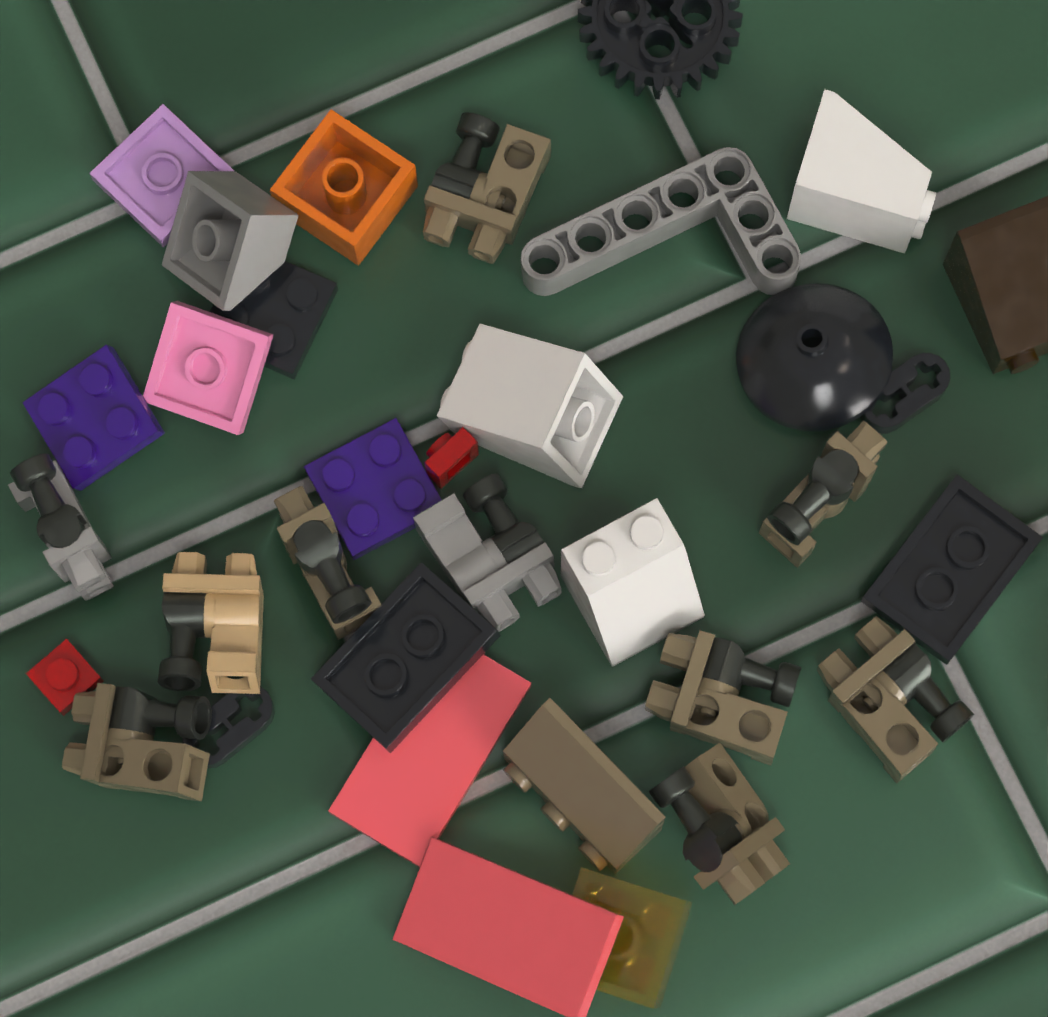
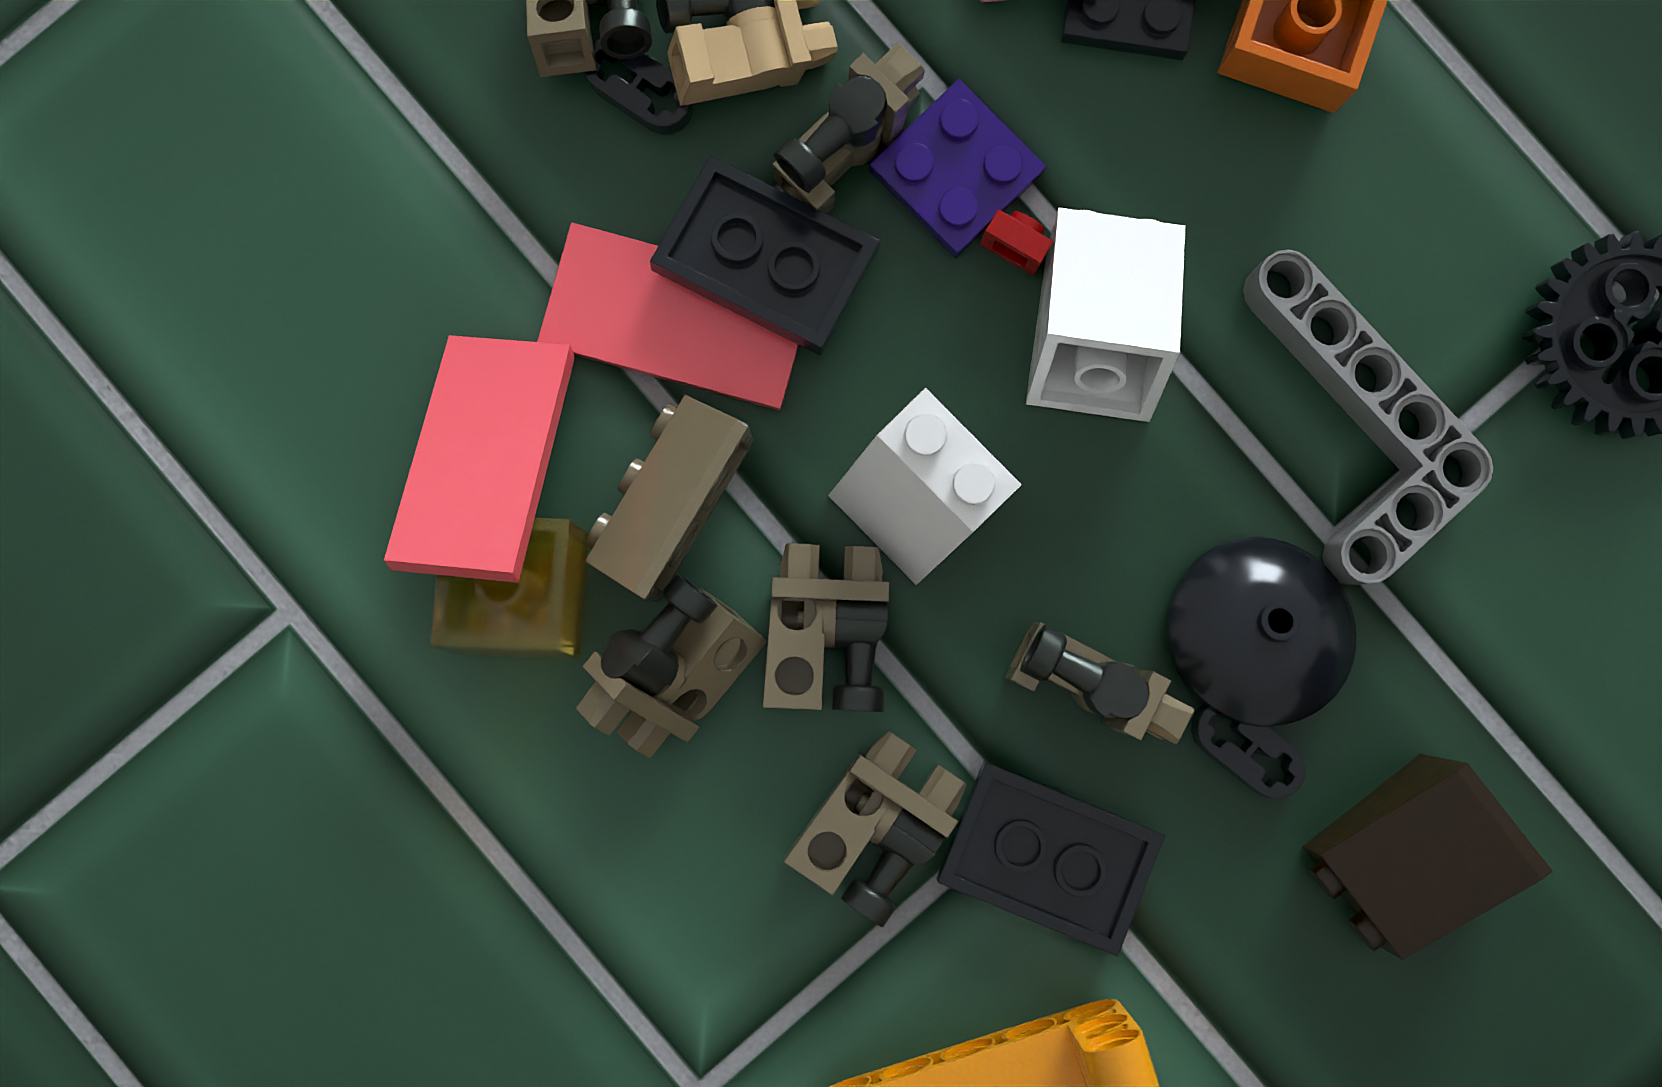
camera: 70 degrees right, 10 degrees up
(484, 202) = (1337, 192): dark tan hips -> none
(493, 568) = (900, 327): light grey hips -> none
(860, 181) = (1498, 627): white slope -> none

